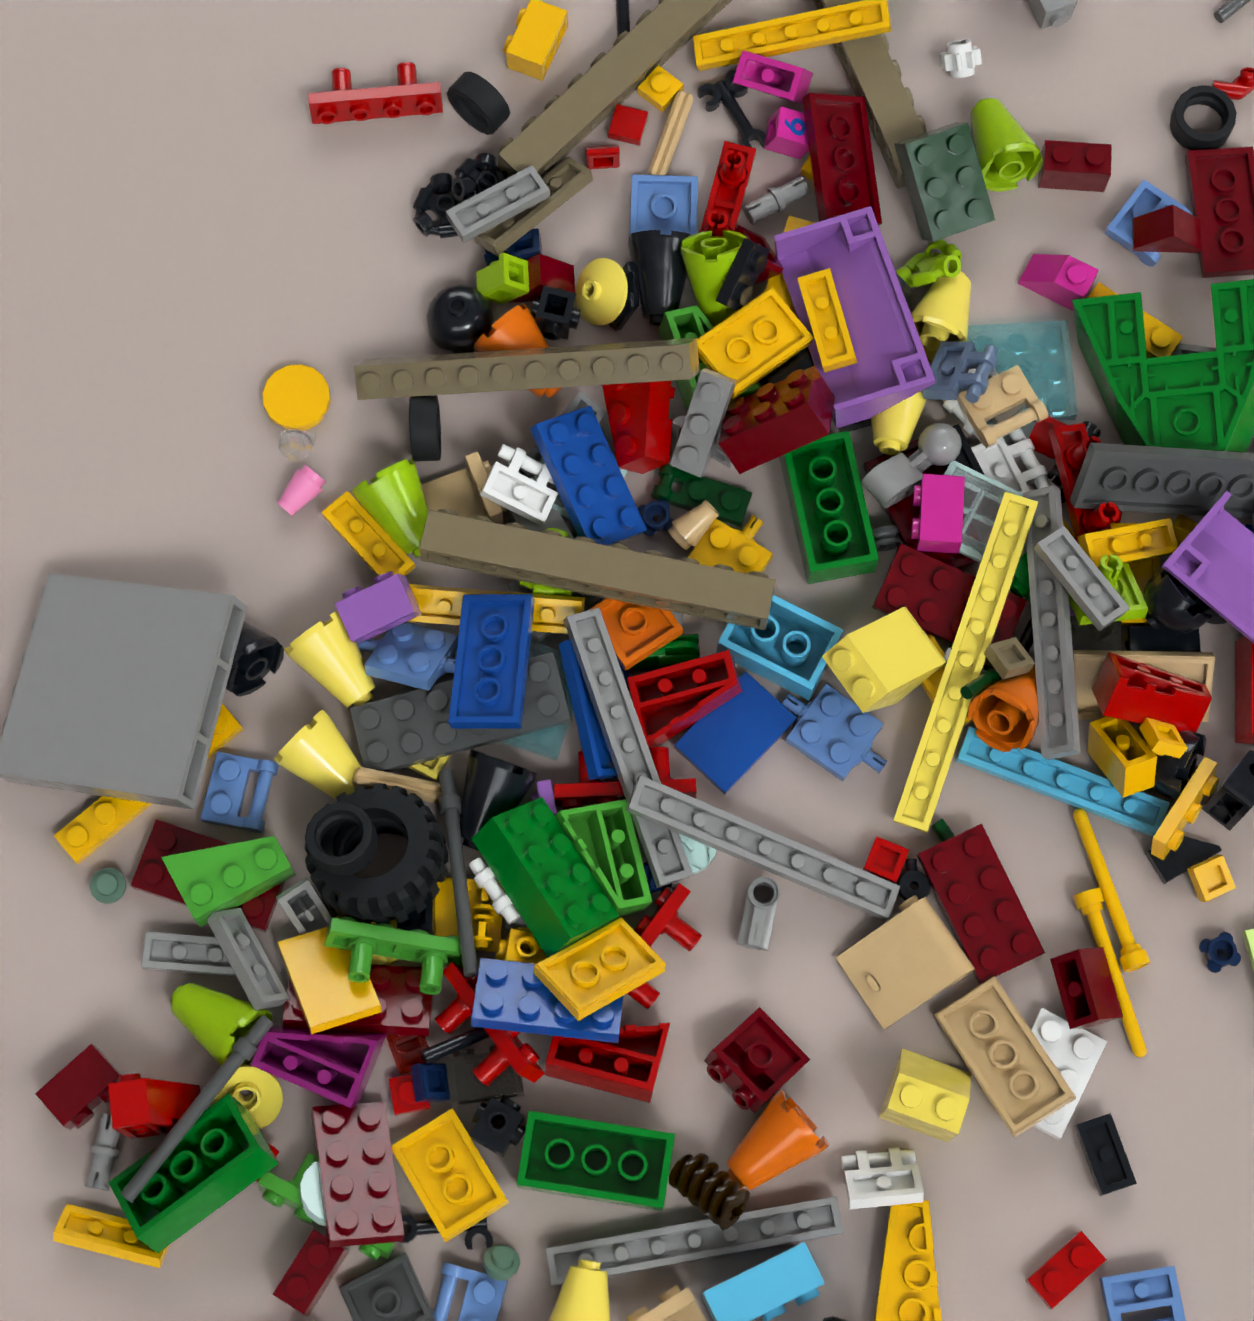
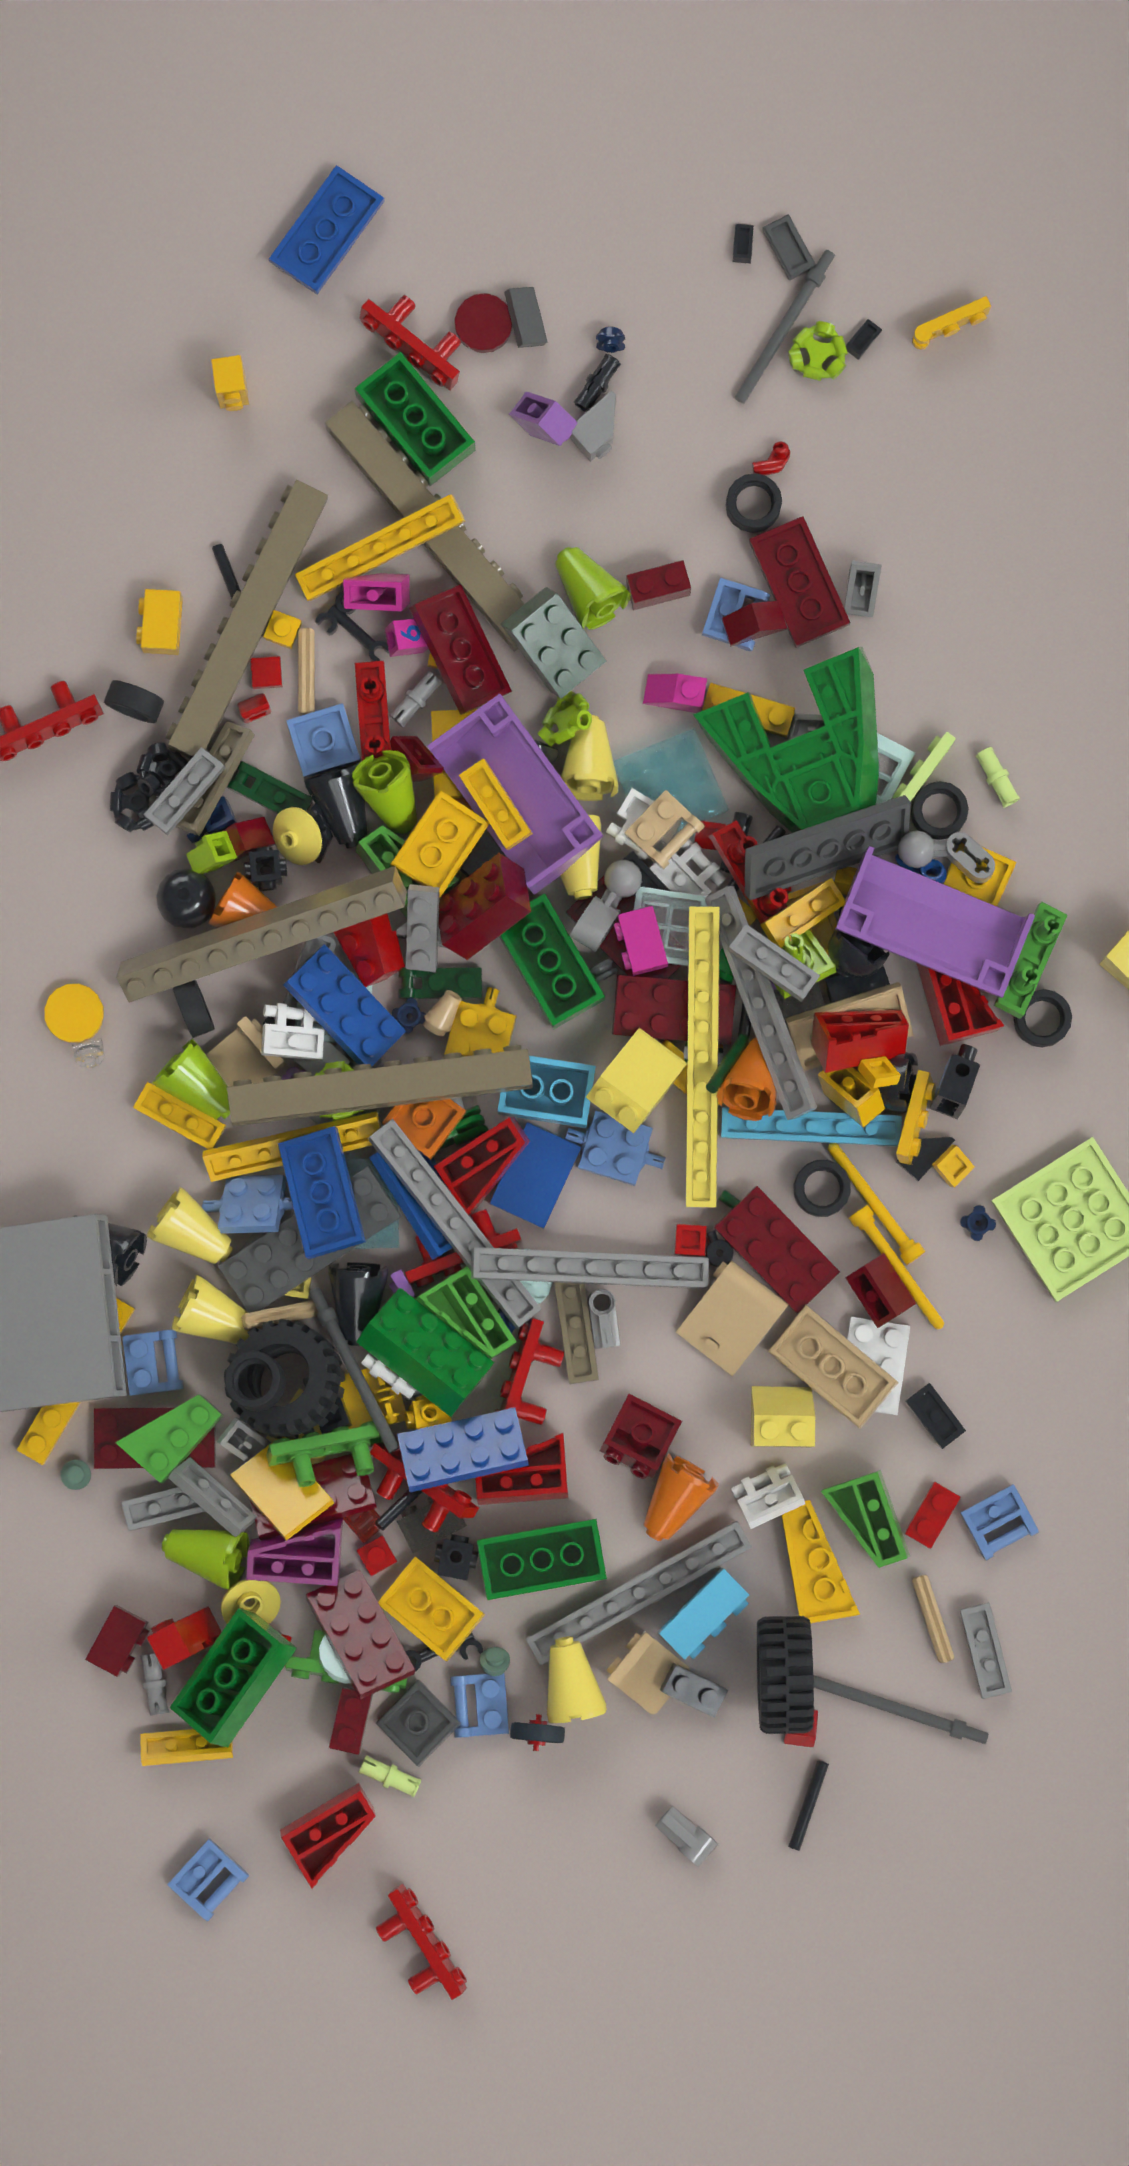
camera: 20 degrees left, 10 degrees up
(243, 1049) = (237, 1571): dark grey bar -> none
(301, 489) = (108, 1092): bright pink cone -> none
(378, 607) = (212, 1177): medium lavender brick -> none
(430, 1082) = (390, 1542): dark blue tile -> none
(585, 237) = (267, 790): none -> dark green plate
(599, 968) = (494, 1411): yellow tile -> none
(709, 1189) = (637, 1552): dark brown piece -> none
(723, 917) = (576, 1332): none -> dark tan plate
(743, 274) = (413, 791): black plate -> none
(952, 367) = (611, 812): sand blue plate -> none
(960, 58) = (530, 517): white gear -> none
(994, 1242) = (870, 1516): none -> bright green wedge
(1009, 658) = (736, 1045): dark tan plate -> none
(1062, 827) = (806, 1204): none -> black tyre

